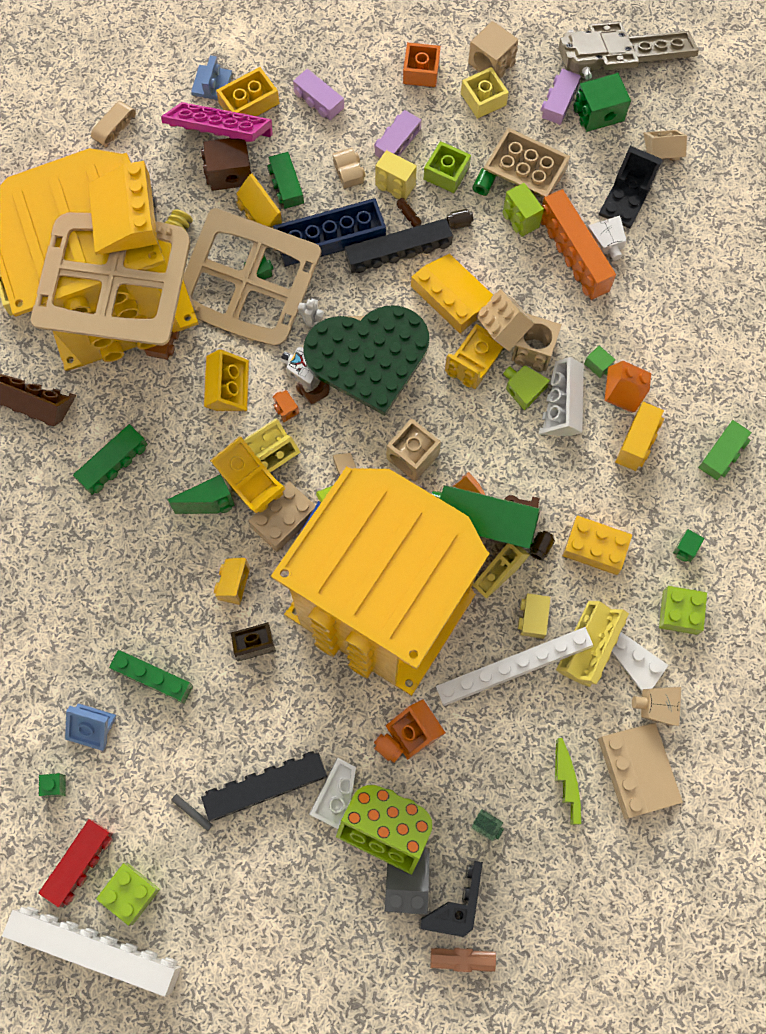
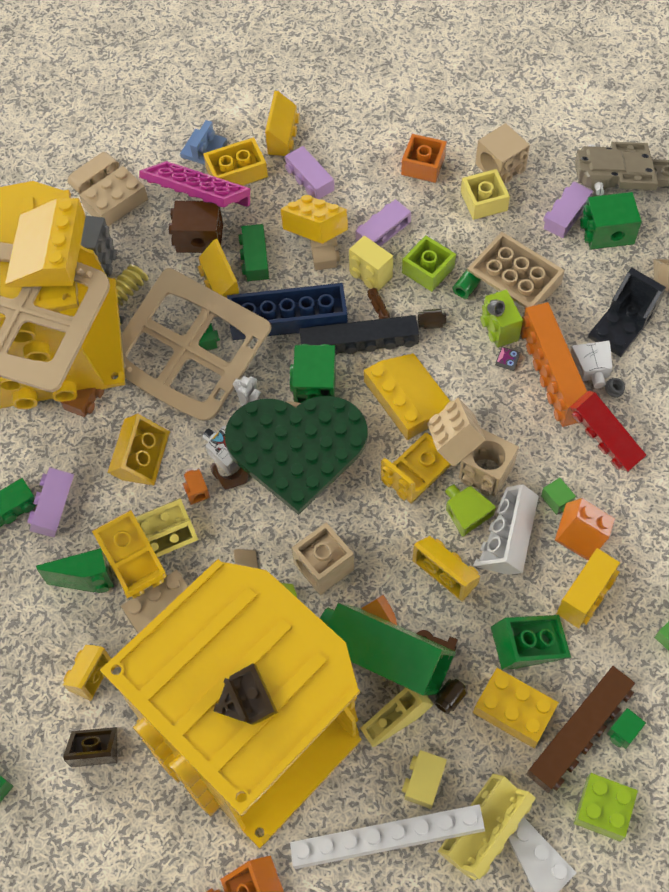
camera: 15 degrees right, 10 degrees down
(142, 140) = (114, 196): none -> tan brick
(160, 441) = (50, 502): none -> lavender brick
(282, 51) = (281, 125): none -> yellow slope
(335, 140) = (314, 219): none -> yellow brick
(367, 286) = (313, 372): none -> green brick
(399, 575) = (246, 697): none -> dark brown slope
(517, 439) = (445, 567): none -> yellow slope
(519, 201) = (498, 305): none -> dark grey hinge
(533, 245) = (507, 358): none -> tile
(598, 488) = (529, 641): none -> green slope
(630, 257) = (615, 387): none -> dark grey plate
(633, 298) = (608, 431): none -> red brick
(653, 552) = (580, 729): none -> reddish brown brick

